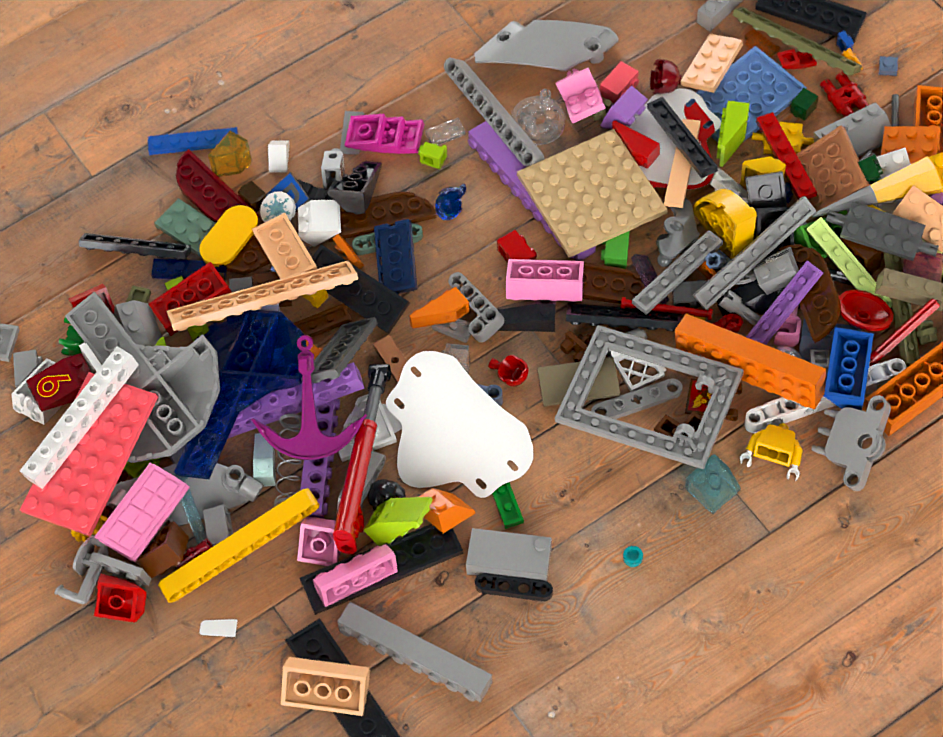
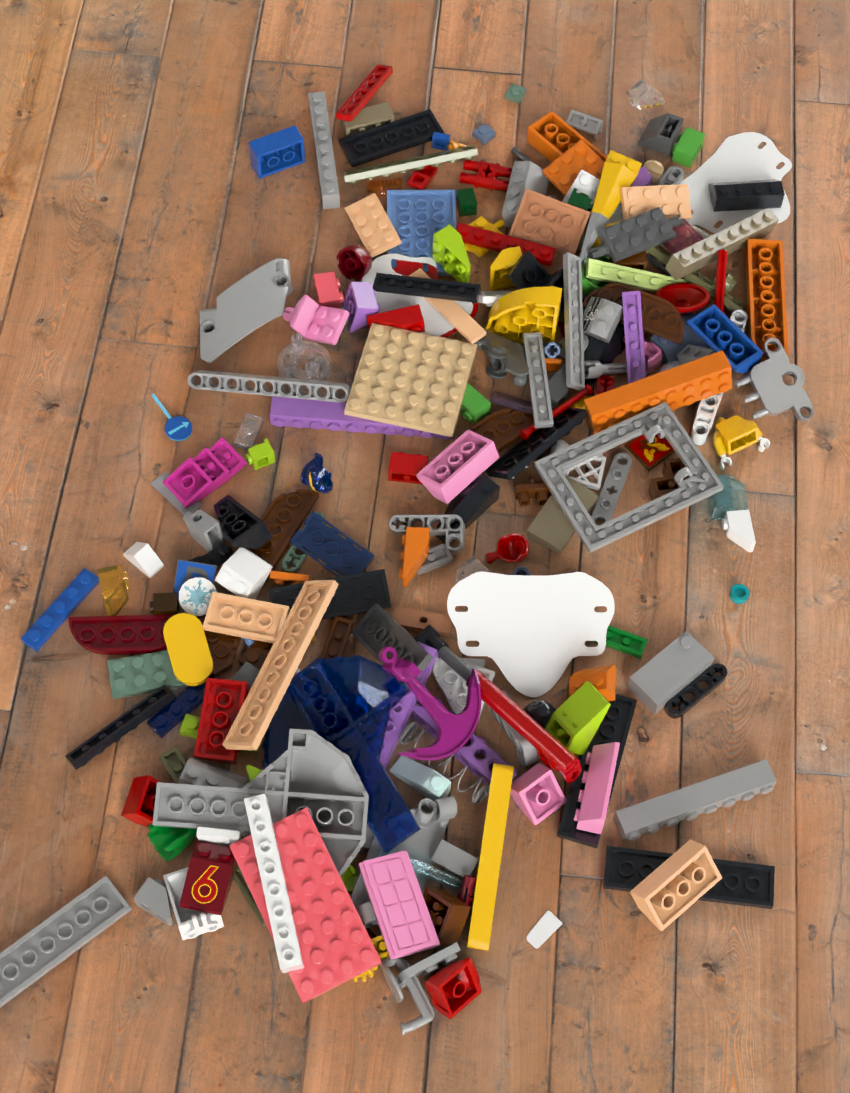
camera: 55 degrees left, 0 degrees up
(407, 89) = (176, 428): none -> blue piece
(692, 512) = (739, 528): none -> white slope

